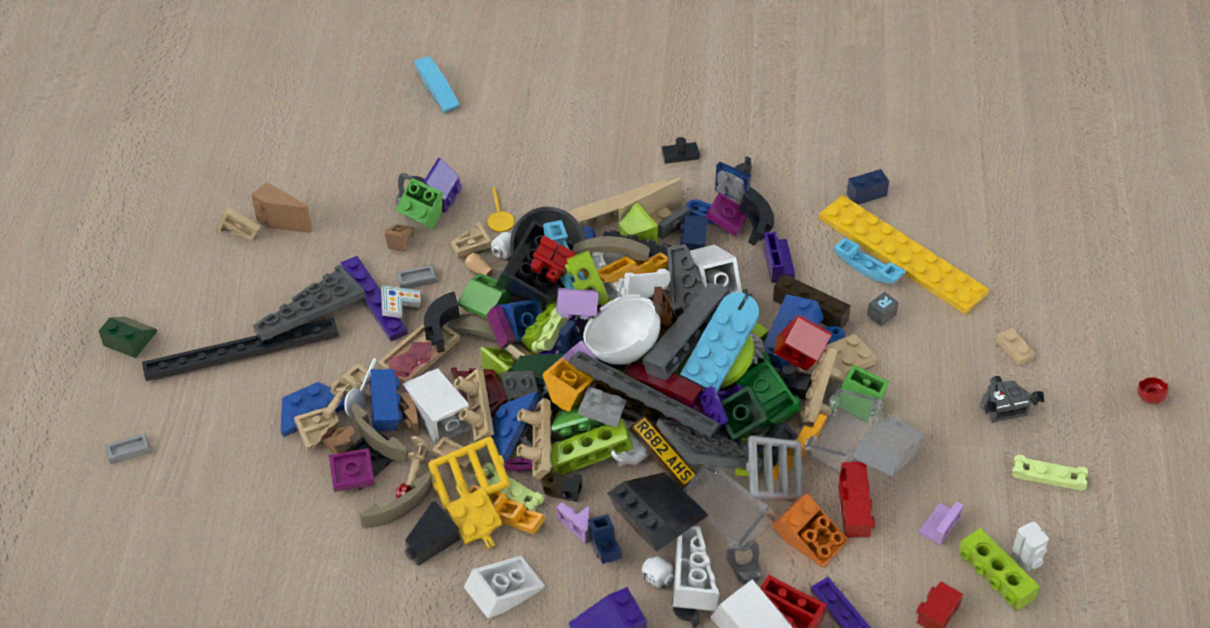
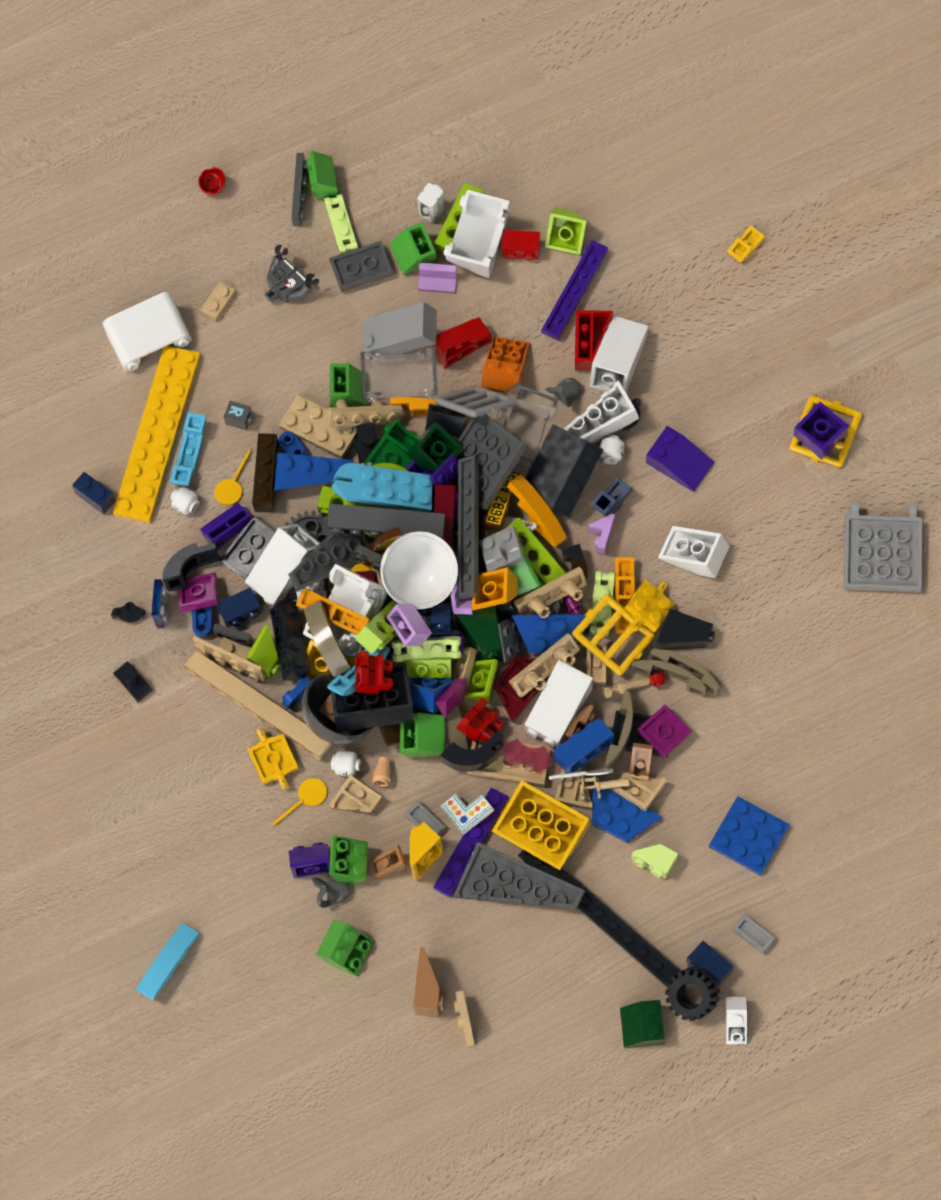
camera: 115 degrees left, 20 degrees up
(71, 394) = (736, 1020): none -> white slope
(114, 368) = (681, 1004): none -> black tyre
(130, 400) = (707, 958): none -> dark blue brick
(210, 489) = (749, 835): none -> blue plate
(248, 408) = (655, 858): none -> yellowish green slope
(343, 342) = (541, 825): none -> yellow slope
(356, 182) = (345, 947): none -> bright green slope
(369, 528) = (689, 665): none -> dark tan slope
(386, 246) = (424, 849): none -> yellow slope
(467, 340) = (478, 720): none -> red hips
(545, 197) = (272, 759): none -> yellow plate
(630, 468) = (538, 510): none -> light orange slope
(750, 265) = (248, 547): none -> tile
(801, 342) = (337, 439): slope -> none
(815, 278) = (229, 491): none -> yellow piece
(821, 242) = (184, 501): none -> white head
(965, 565) = (478, 232): none -> white windscreen
(984, 513) = (413, 247): none -> bright green slope
(991, 466) = (361, 266): none -> dark grey plate
(1008, 279) = (145, 329): none -> white windscreen
(1109, 453) = (298, 195): none -> dark grey plate
(1113, 473) = (322, 175): none -> bright green slope

